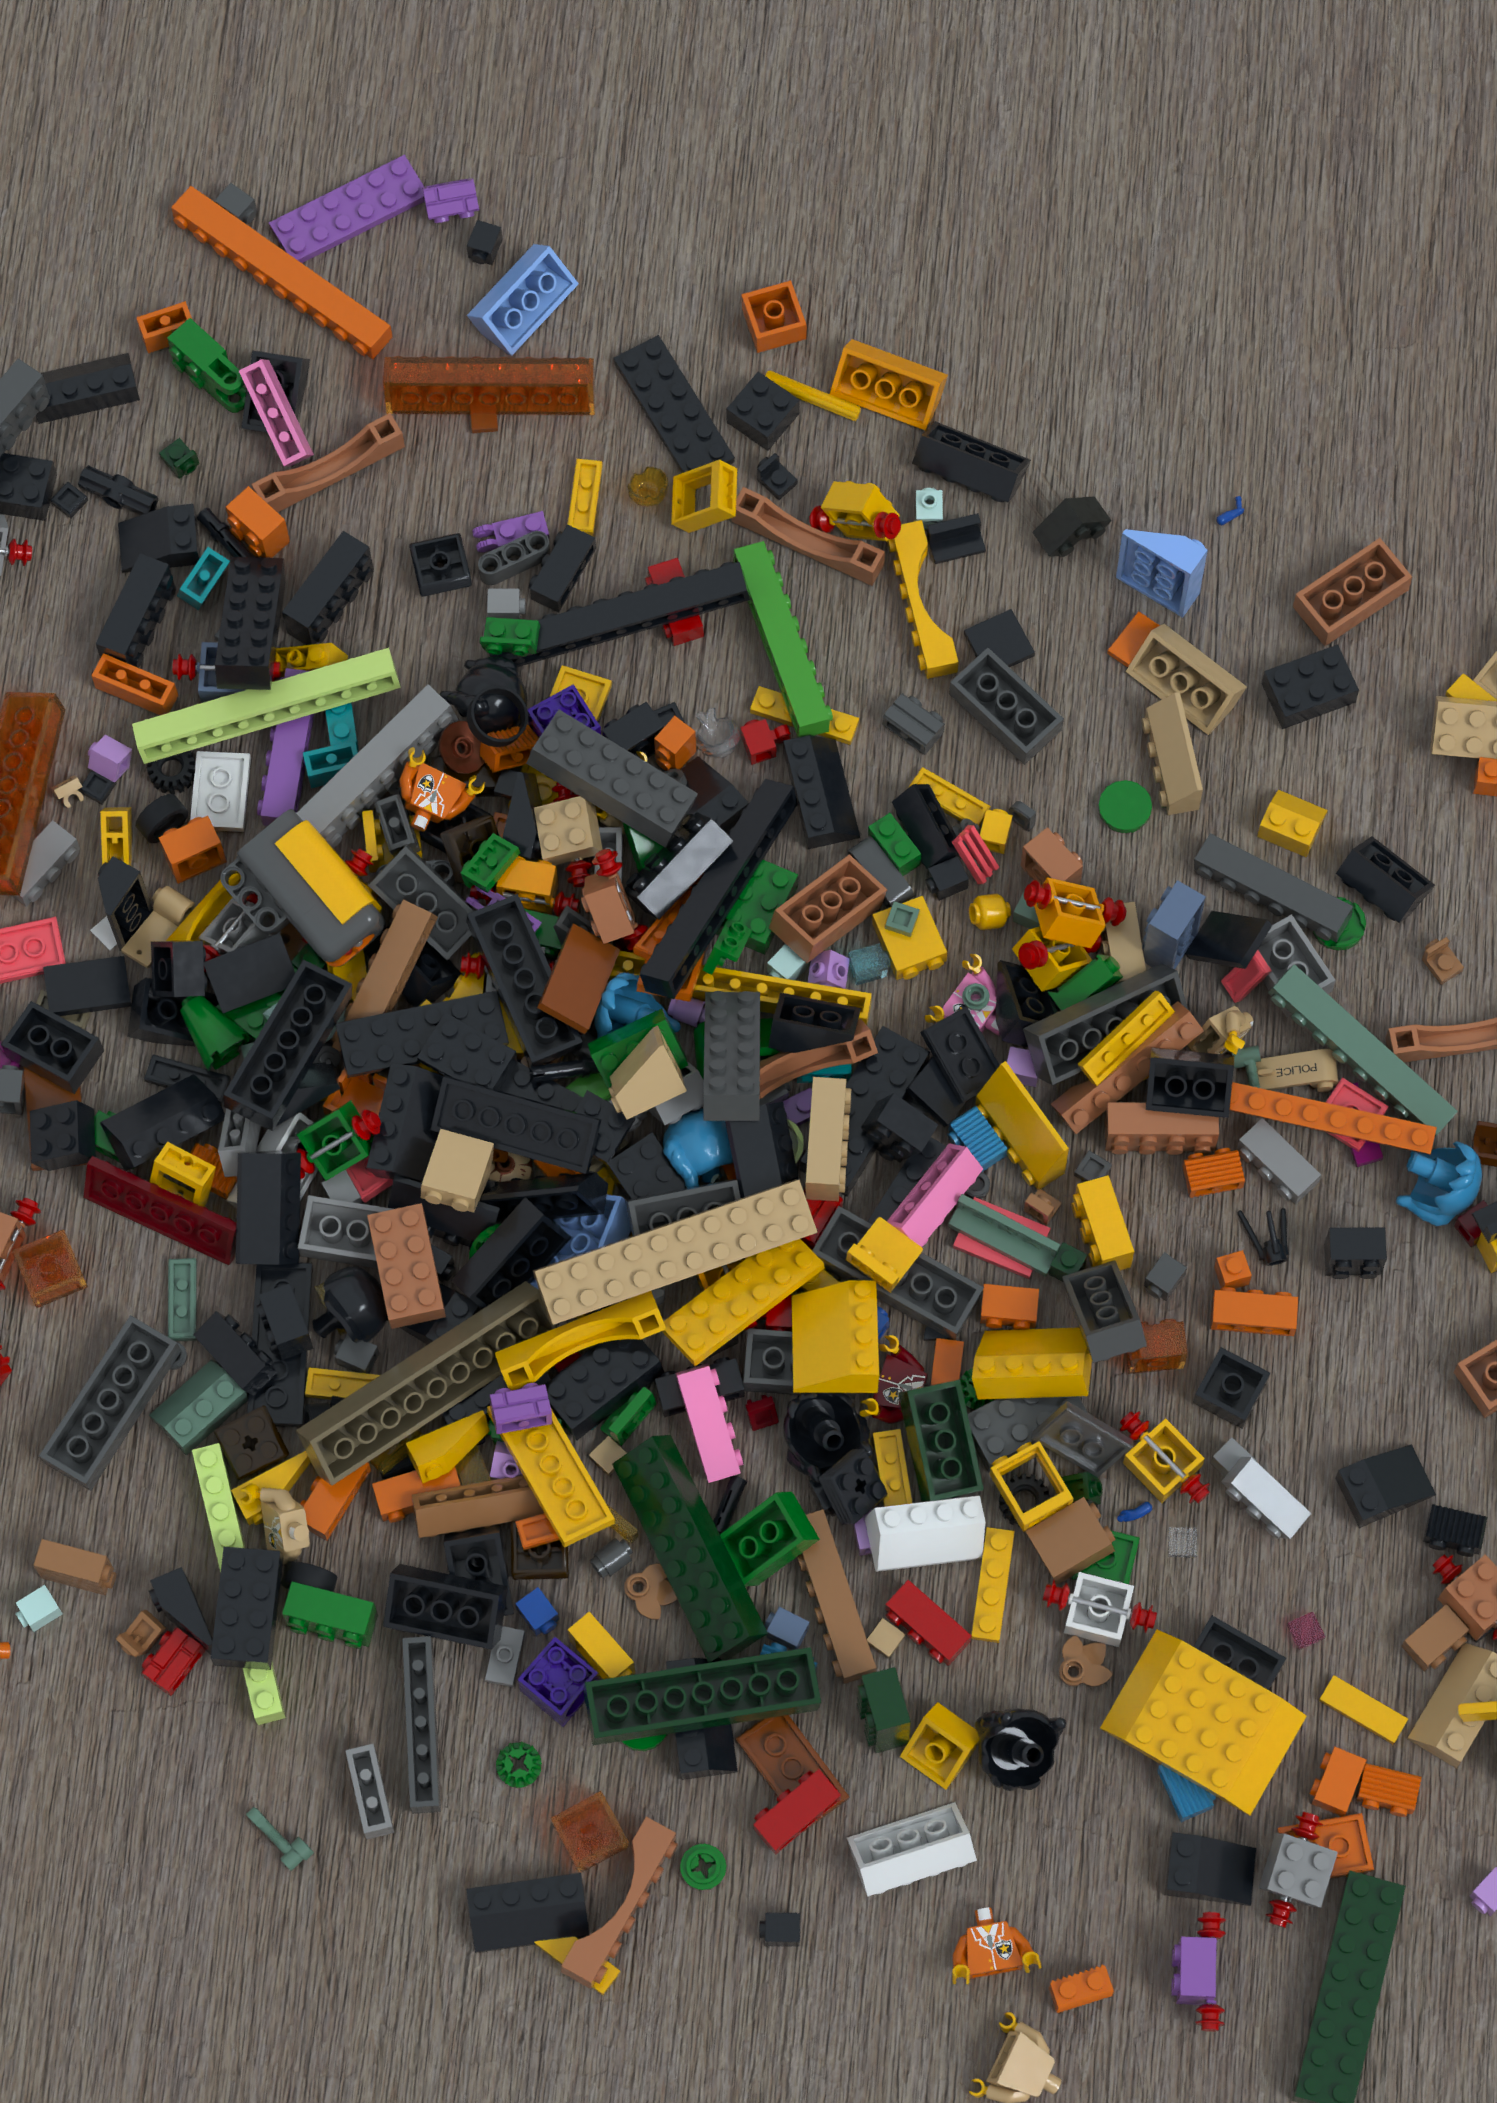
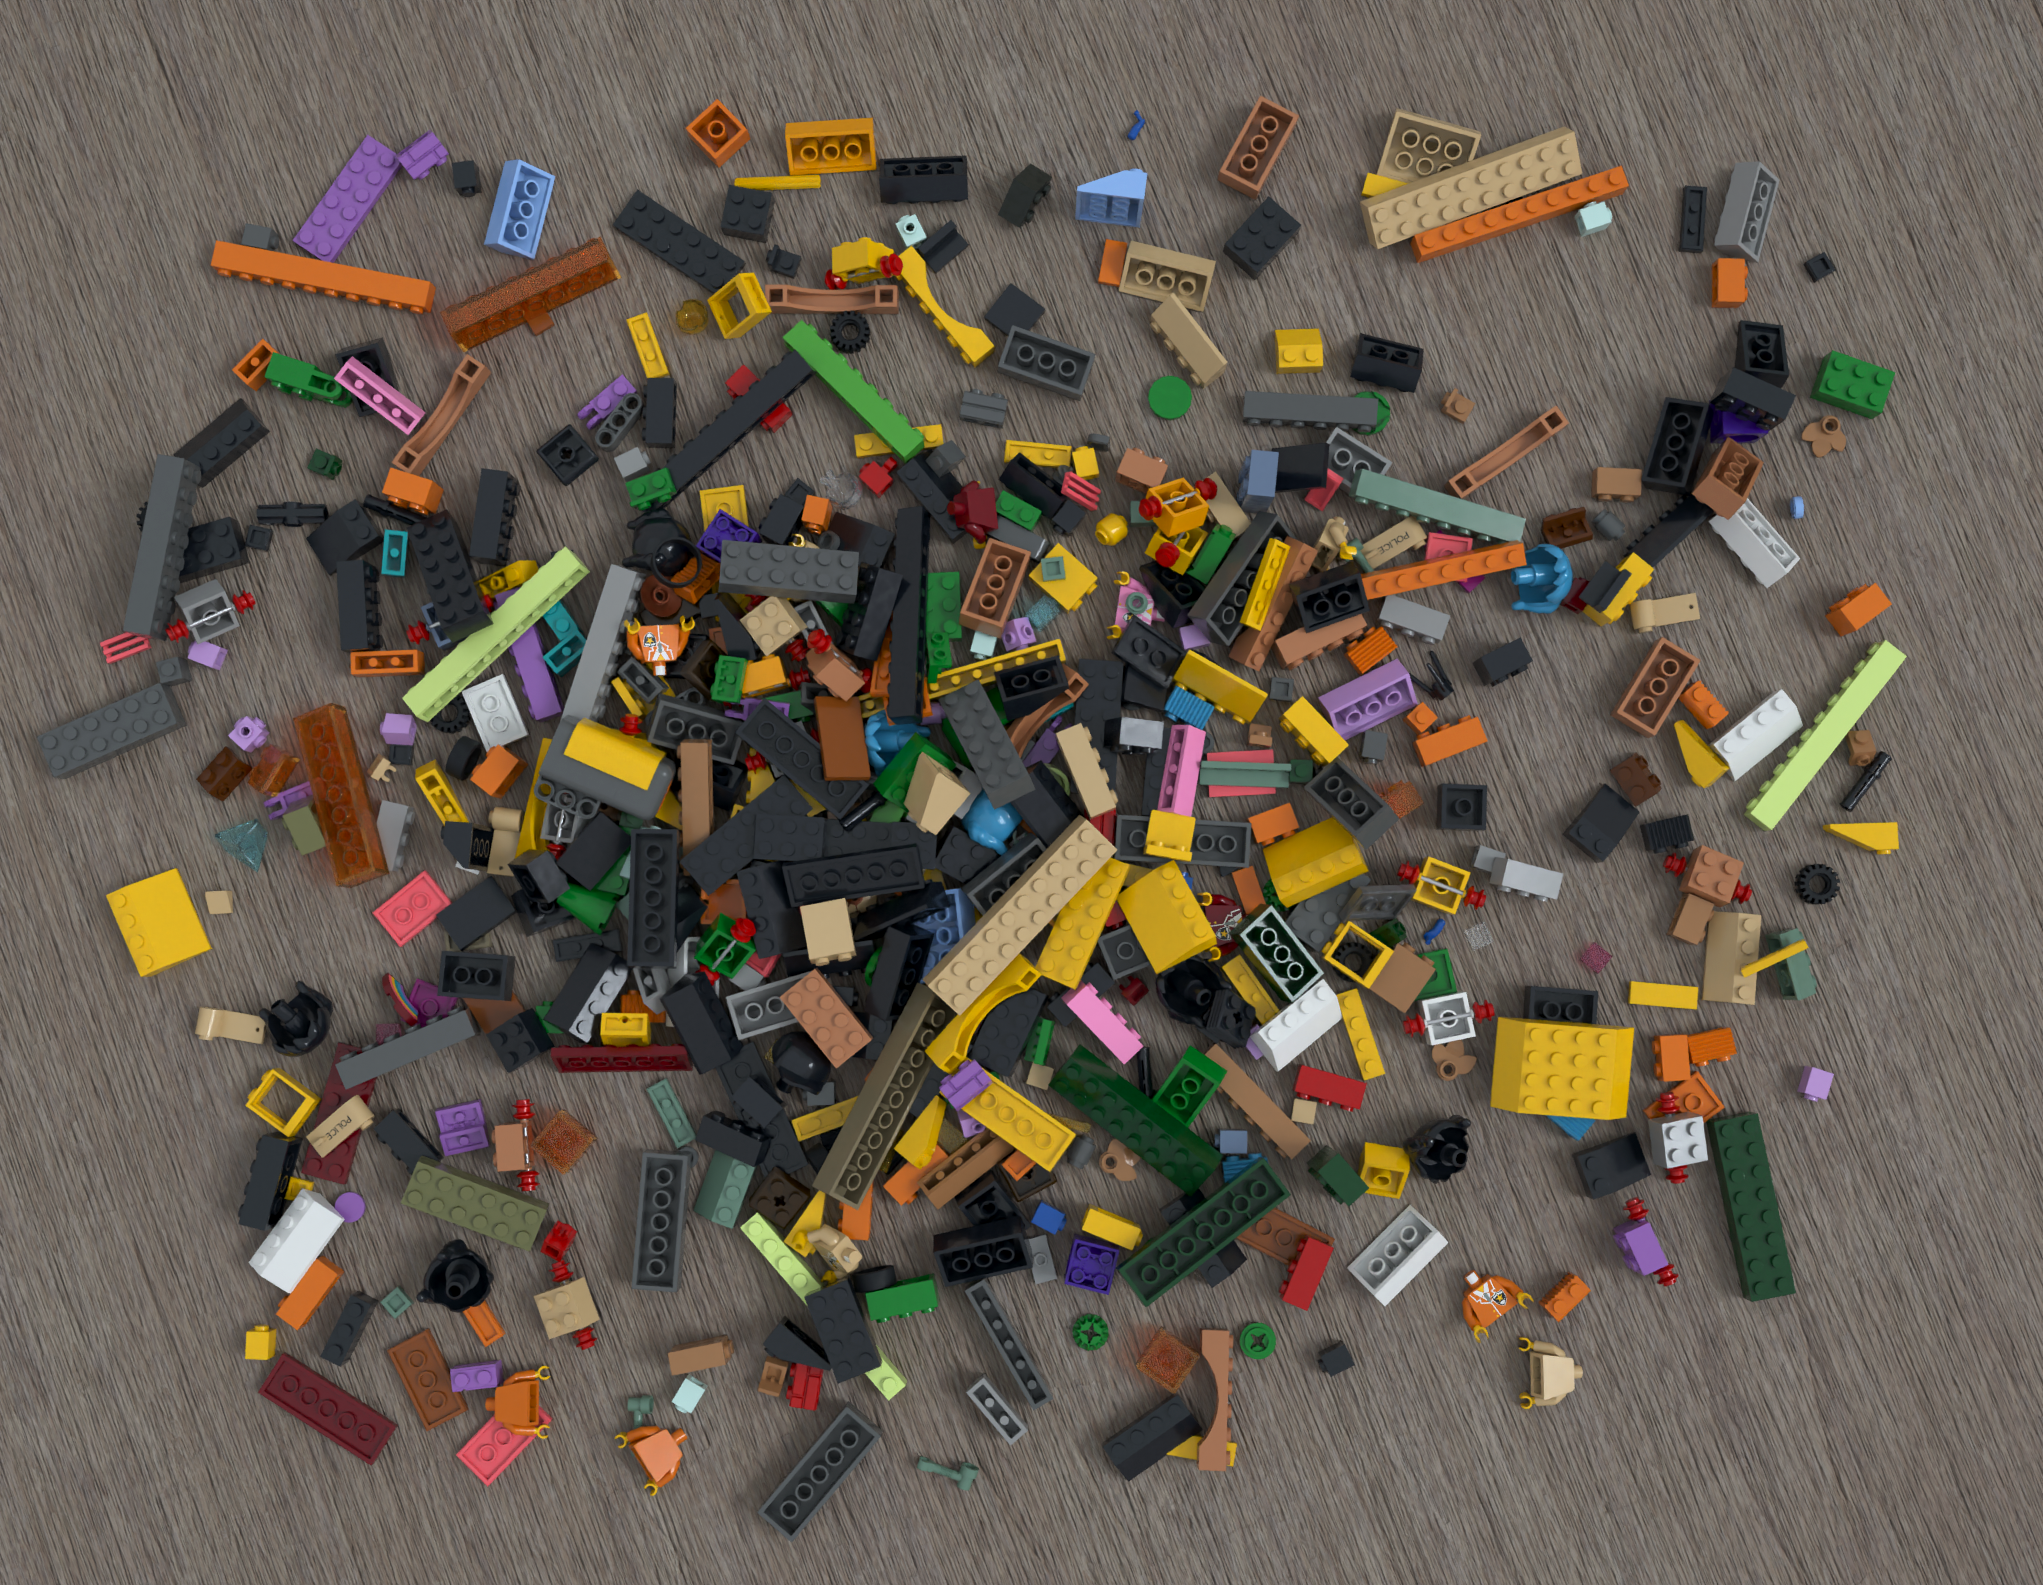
camera: 25 degrees left, 15 degrees up
(136, 1762) = (820, 1471): none -> dark grey brick
(806, 565) = (847, 319): none -> black tyre
(844, 753) = (945, 458): none -> dark grey brick
(847, 819) = (975, 512): none -> dark red torso
(1184, 1225) = (1369, 700): none -> lavender slope
(1449, 1454) = (1636, 779): none -> reddish brown bracket

